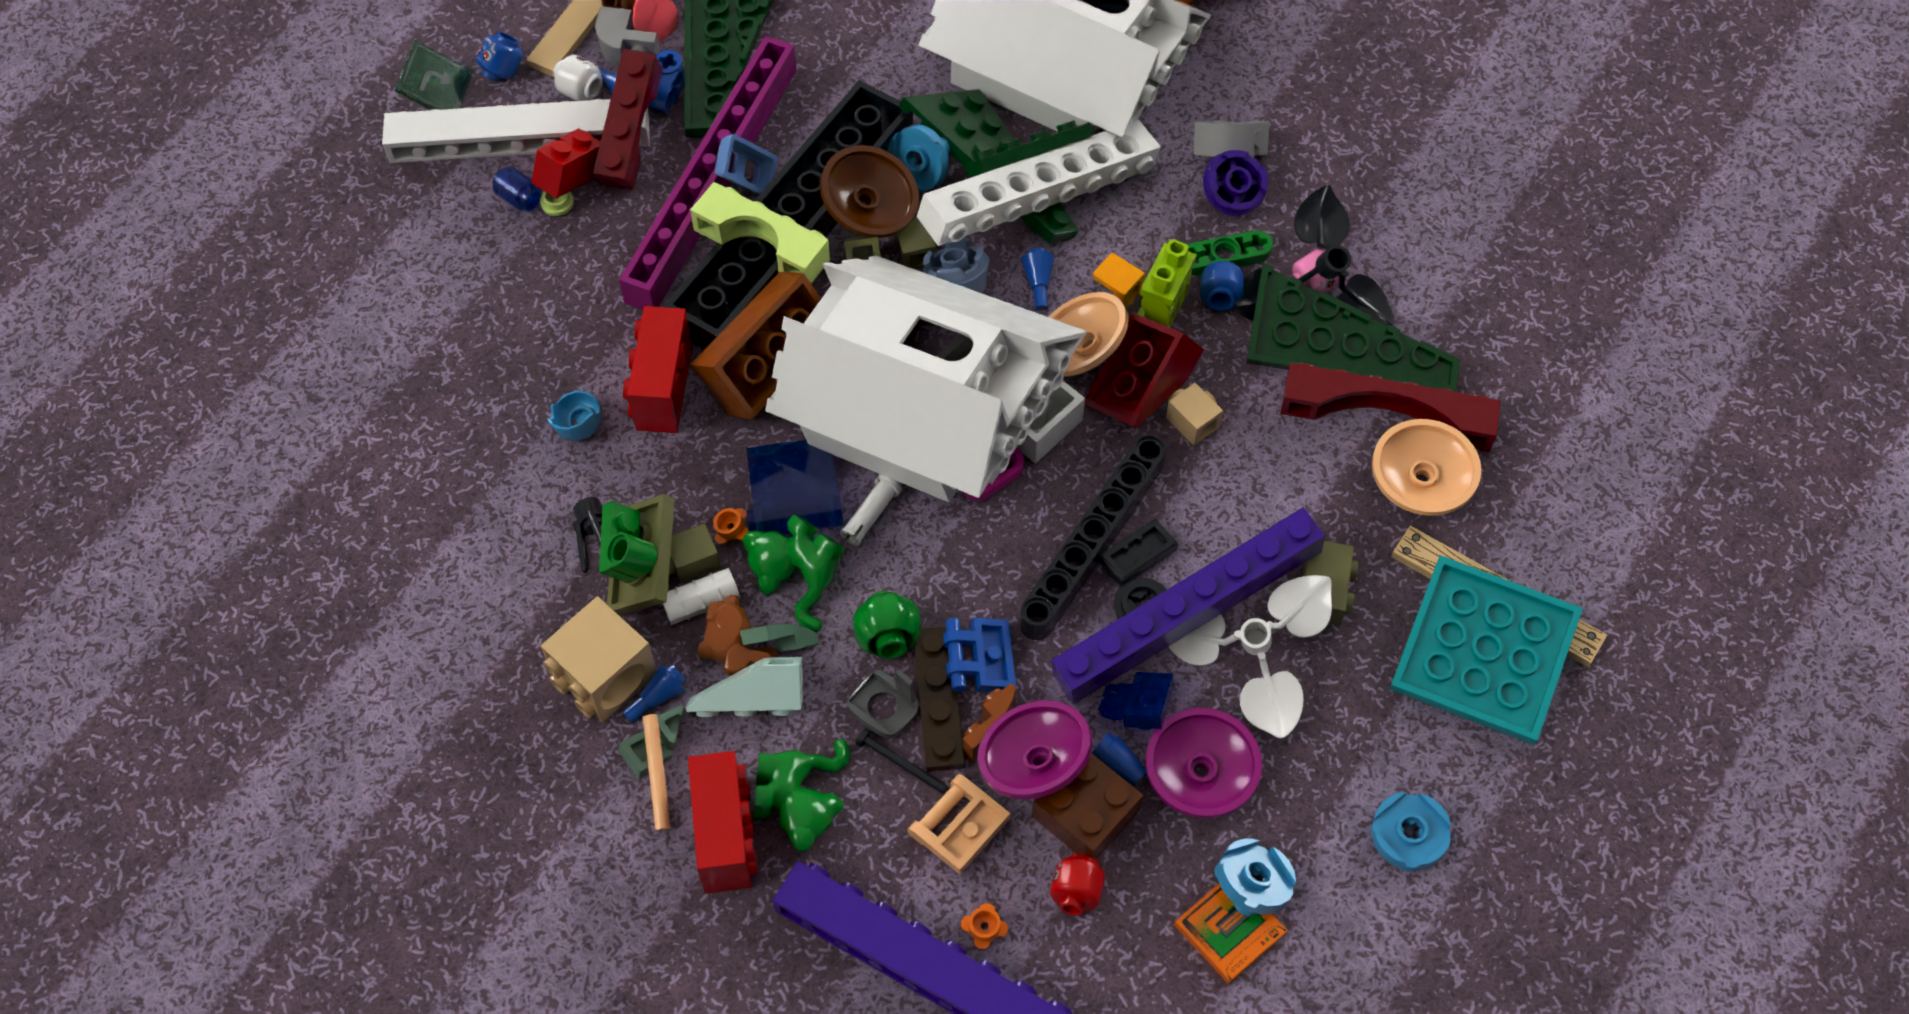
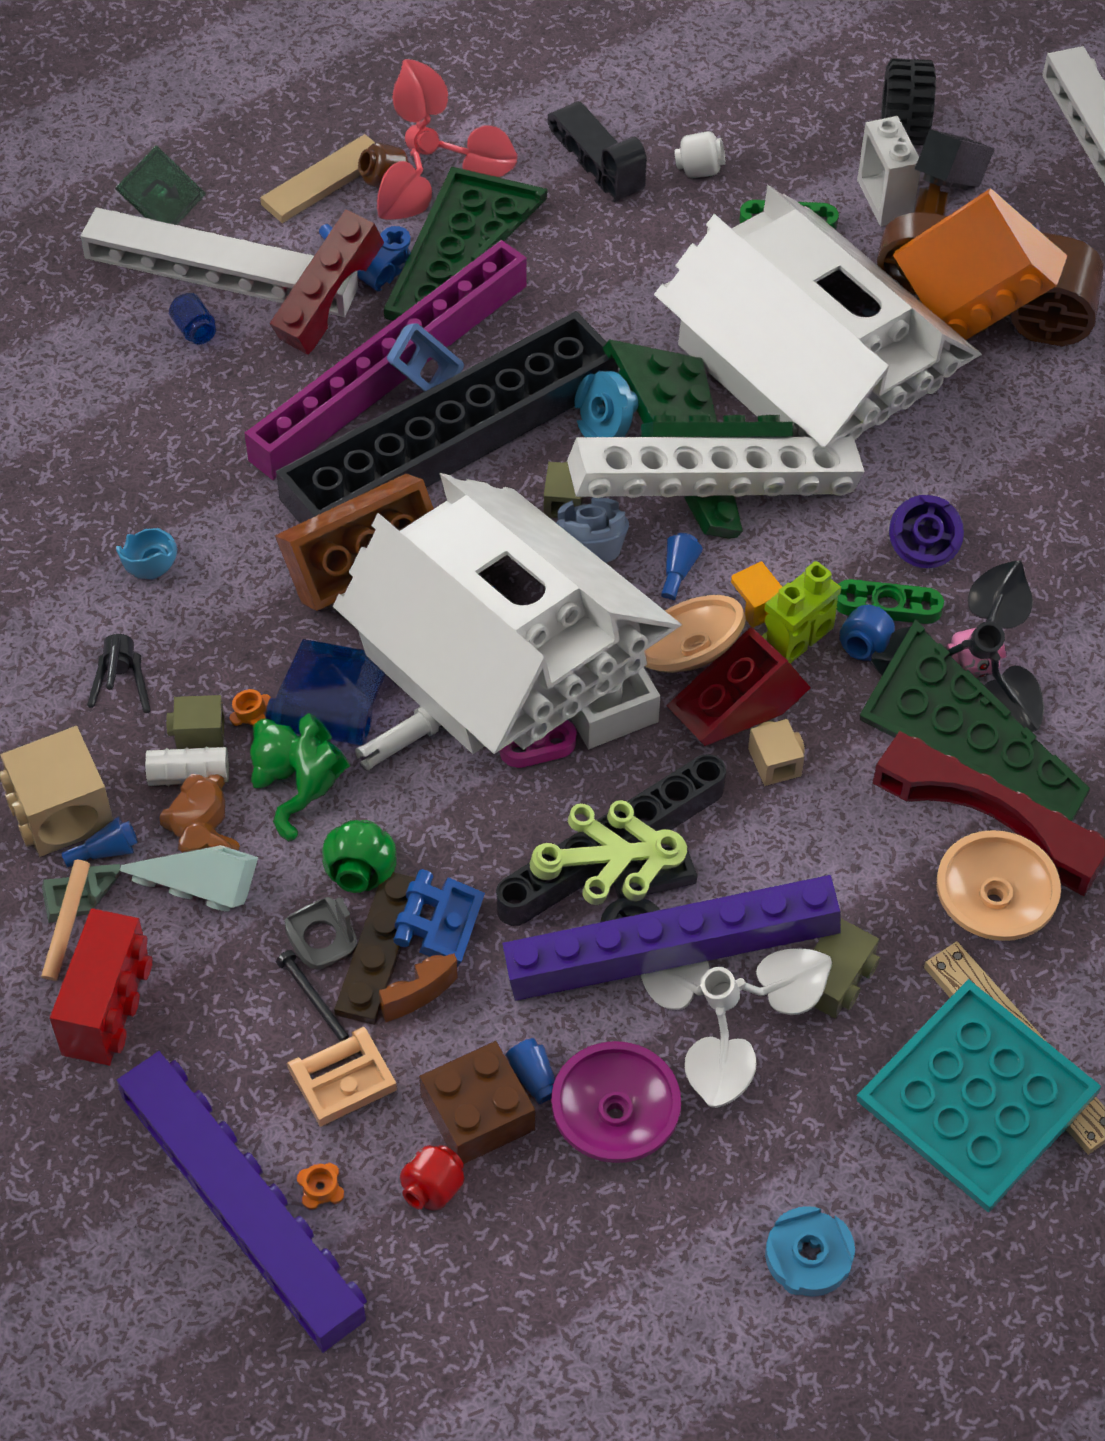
camera: 20 degrees right, 5 degrees down
(499, 56) = (234, 186): blue head -> none
(556, 206) = (227, 341): yellowish green plate -> none
(565, 163) = (246, 306): red piece -> none
(577, 78) = (301, 229): white head -> none
(616, 33) = (359, 195): light grey brick -> none
(621, 550) = (125, 690): green plate -> none
(651, 589) = (144, 705): olive plate -> none
(658, 369) = (243, 532): red brick -> none
(727, 215) = (377, 402): yellowish green arch -> none
(785, 636) = (254, 832): sand green slope -> none
(802, 811) = (188, 1006): green animal -> none
(861, 247) = (505, 476): olive brick -> none
(876, 179) = (535, 405): reddish brown dish -> none
(1035, 749) = (441, 1024): magenta dish -> none
(1106, 546) = (614, 852): none -> yellowish green plant
(1140, 703) = (581, 1021): clear blue hinge -> none
(1221, 136) = (960, 489): light grey brick -> none
(1227, 937) = (572, 1280): orange tile -> none
(1246, 892) = (603, 1251): dark azure plate -> none

